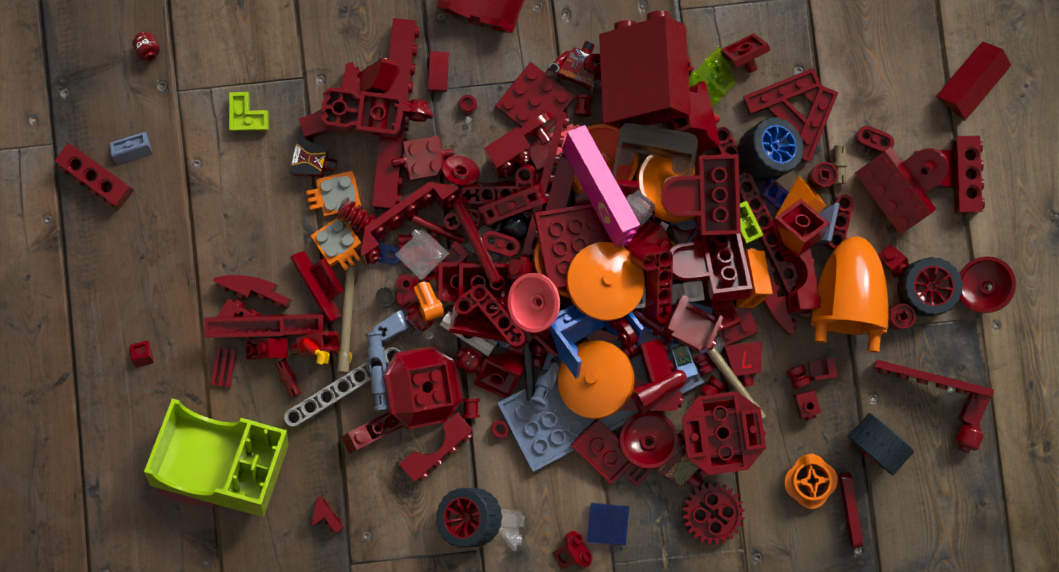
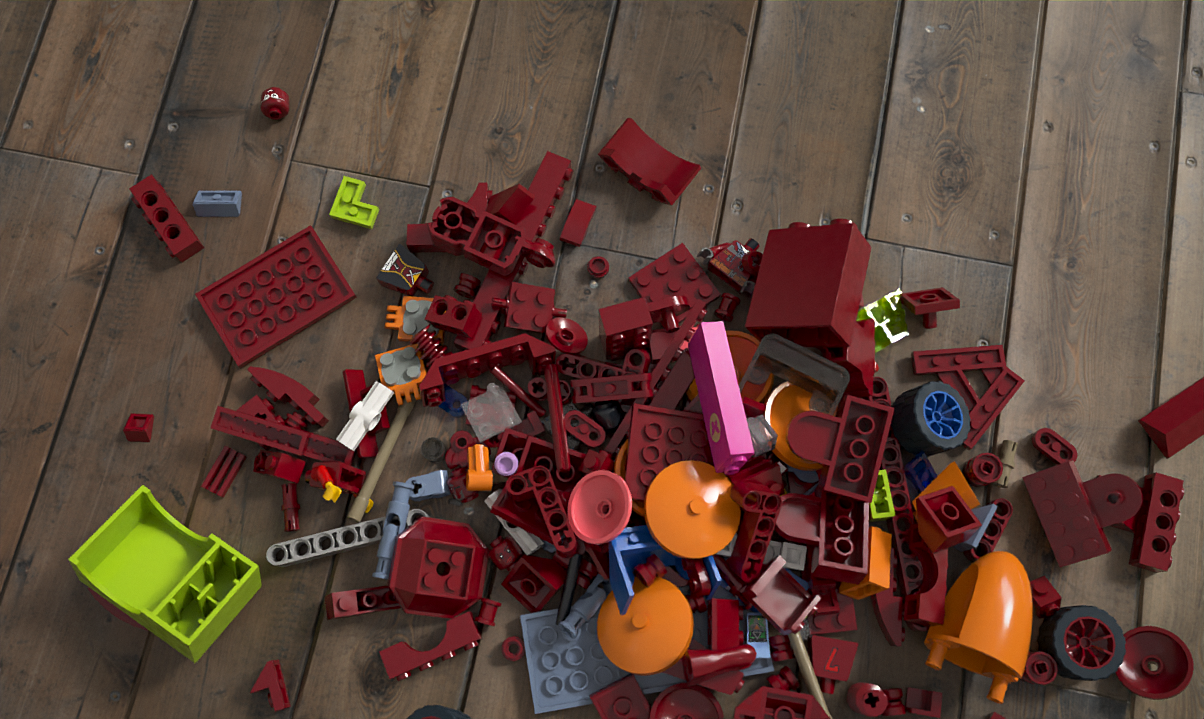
camera: 20 degrees right, 10 degrees down
(210, 212) = (275, 296): none -> dark red plate
(266, 308) = (296, 420): none -> dark red plate
(323, 288) = (365, 415): none -> white piece
(364, 189) = (452, 319): none -> dark red brick
(365, 154) = (467, 286): none -> dark red wheel
(448, 290) = (506, 463): none -> lavender plate
(586, 338) = (650, 570): none -> dark red wheel
(785, 384) = (871, 707): none -> dark red piece

